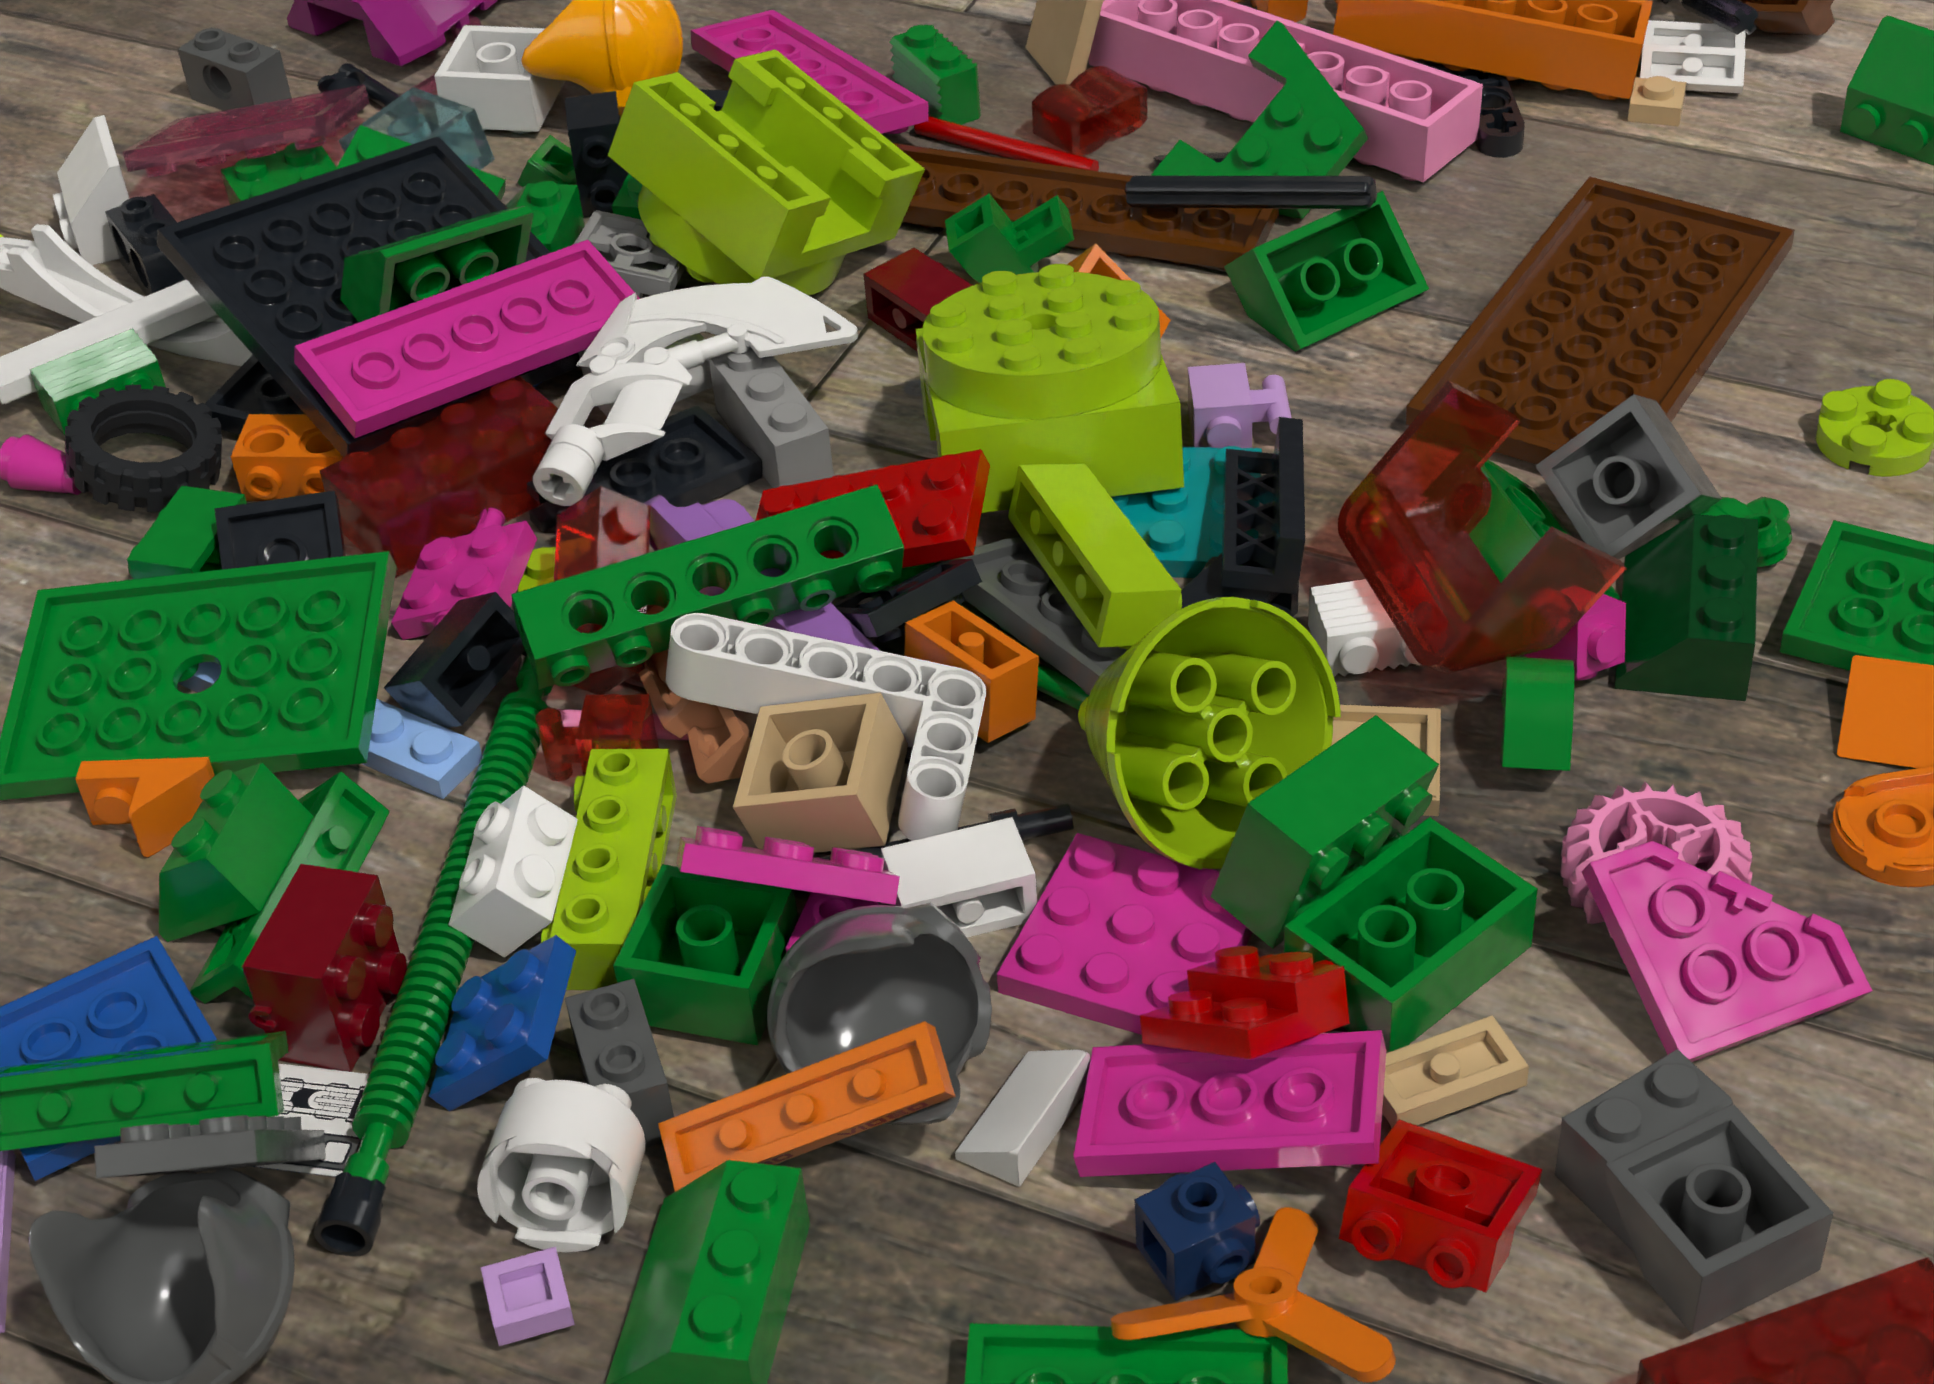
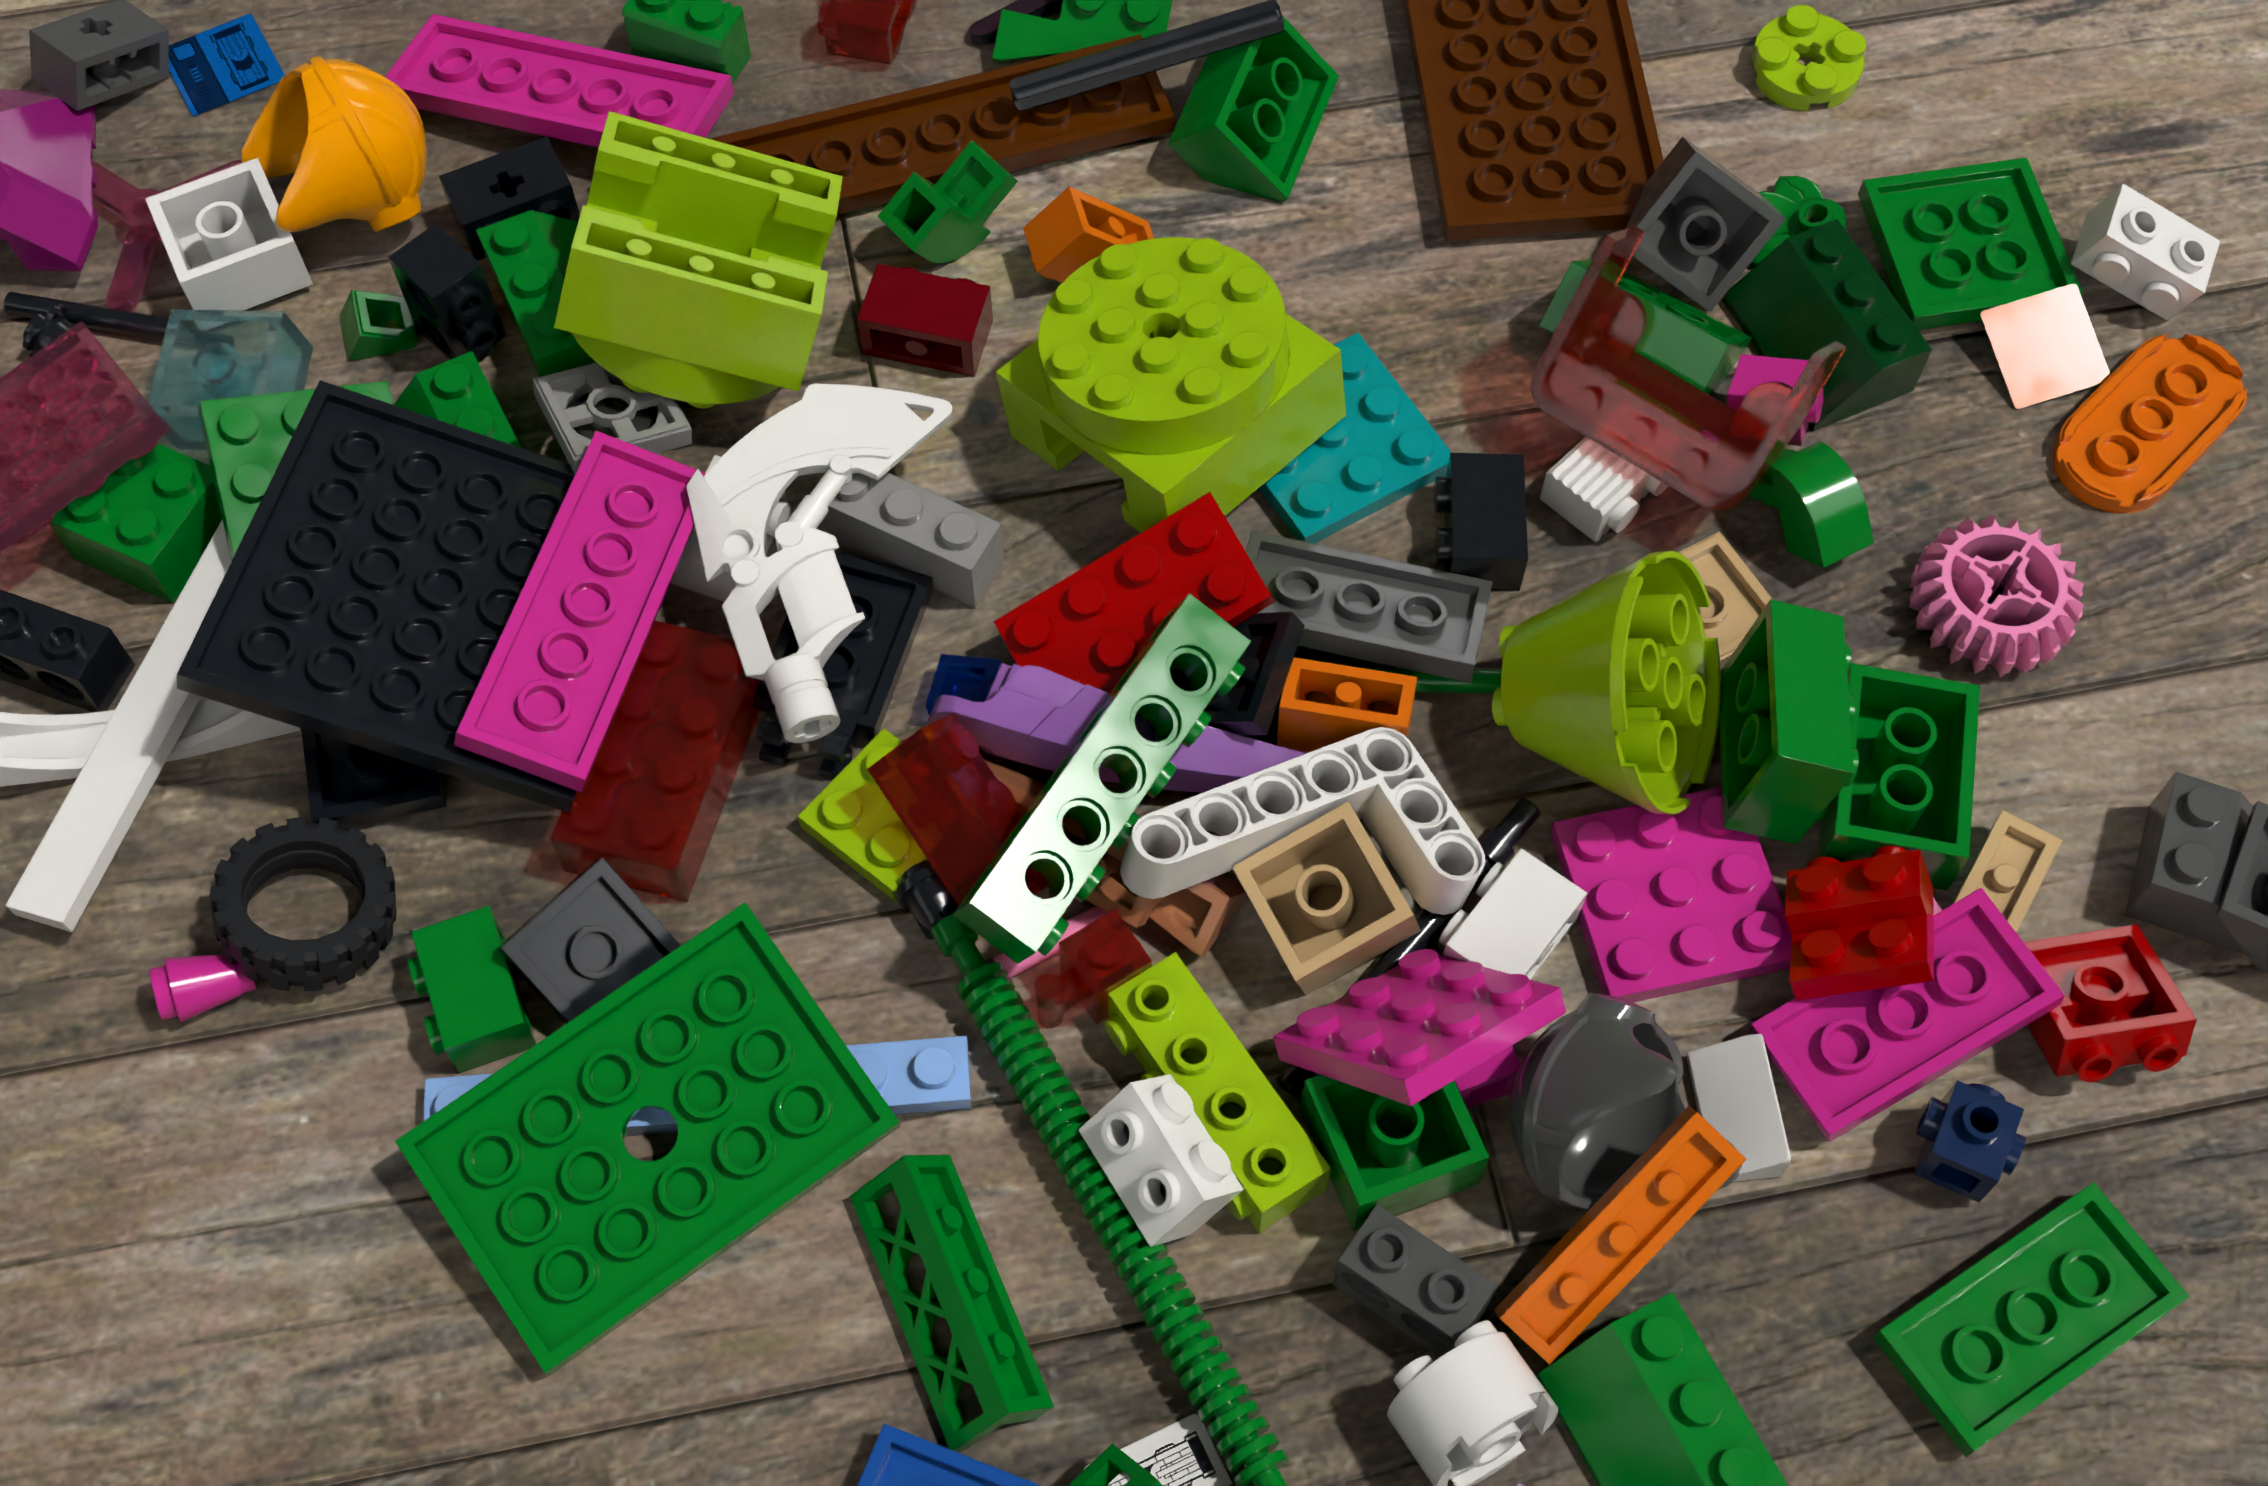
camera: 40 degrees left, 20 degrees up
(94, 368) = (160, 849): brick -> none
(146, 793) = (730, 1272): orange slope -> none
(229, 852) = (889, 1306): green slope -> none
(281, 457) = (487, 840): orange brick -> none
(325, 966) = (1096, 1360): dark red brick -> none
(434, 262) = (491, 552): green slope -> none
(459, 661) = (891, 969): black brick -> none
(464, 567) = (788, 867): dark pink plate -> none
(502, 1023) = (1286, 1310): blue plate -> none
(1001, 145) = (829, 82): red bar -> none
(1092, 553) = (1363, 540): lime brick -> none
(1225, 407) = (1314, 290): lavender brick -> none
(1270, 1306) = (2097, 1173): orange piece -> none
(1278, 519) = (1476, 408): black fence -> none
(1717, 952) = (2114, 661): dark pink plate -> none

